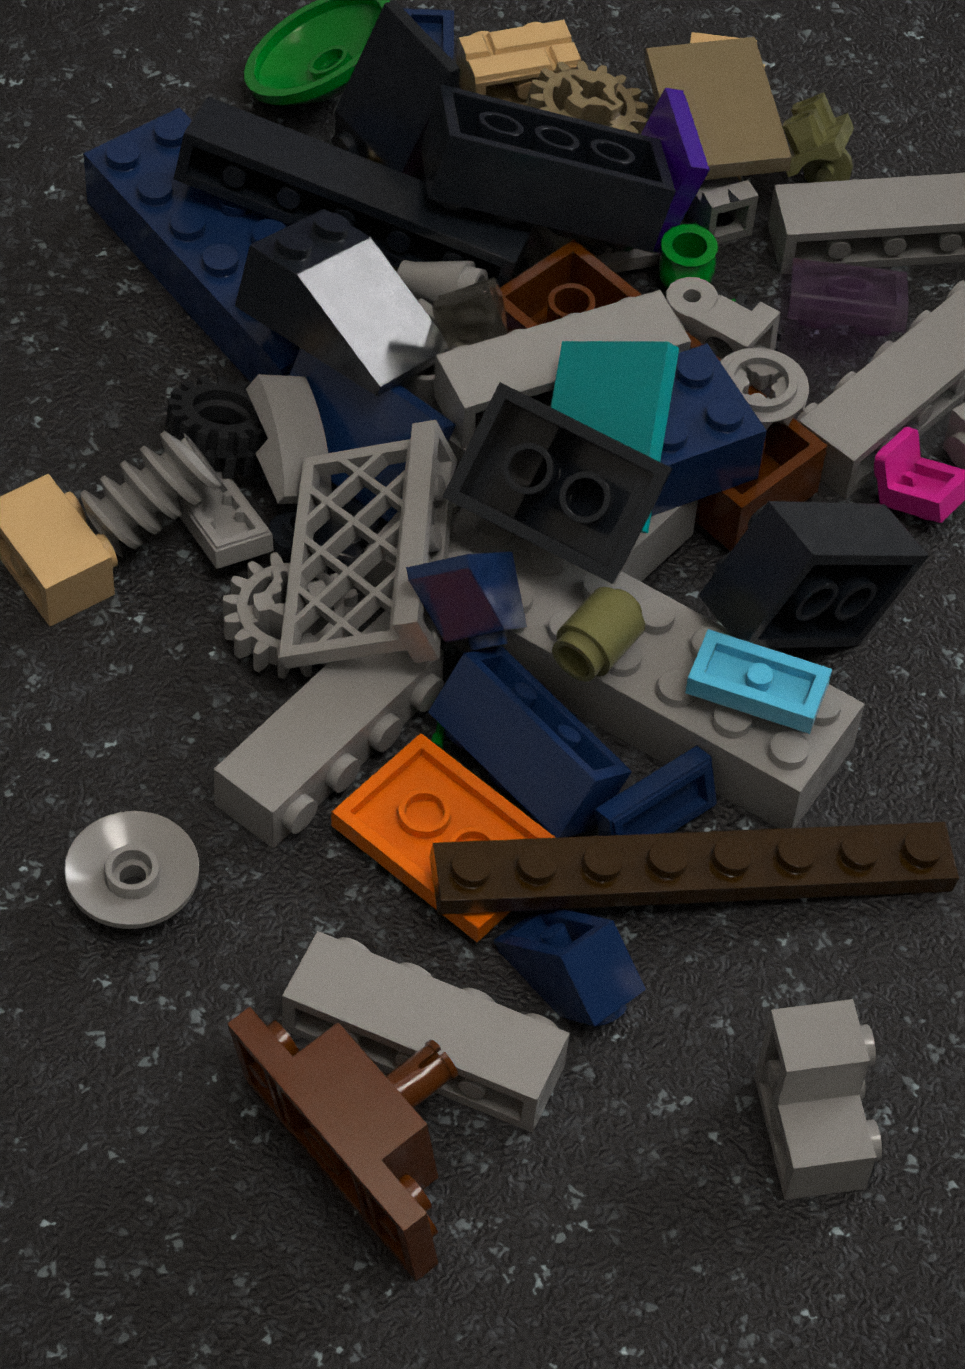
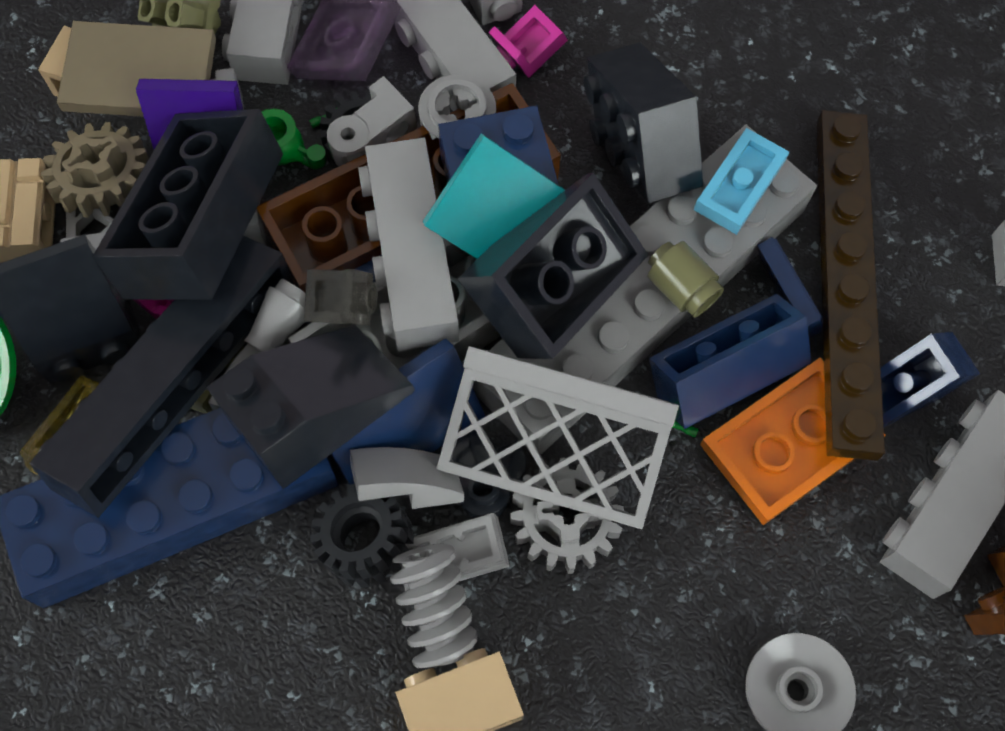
camera: 75 degrees left, 15 degrees up
(323, 738) = (695, 517): light grey brick -> none
(471, 597) = (630, 360): dark blue slope -> none

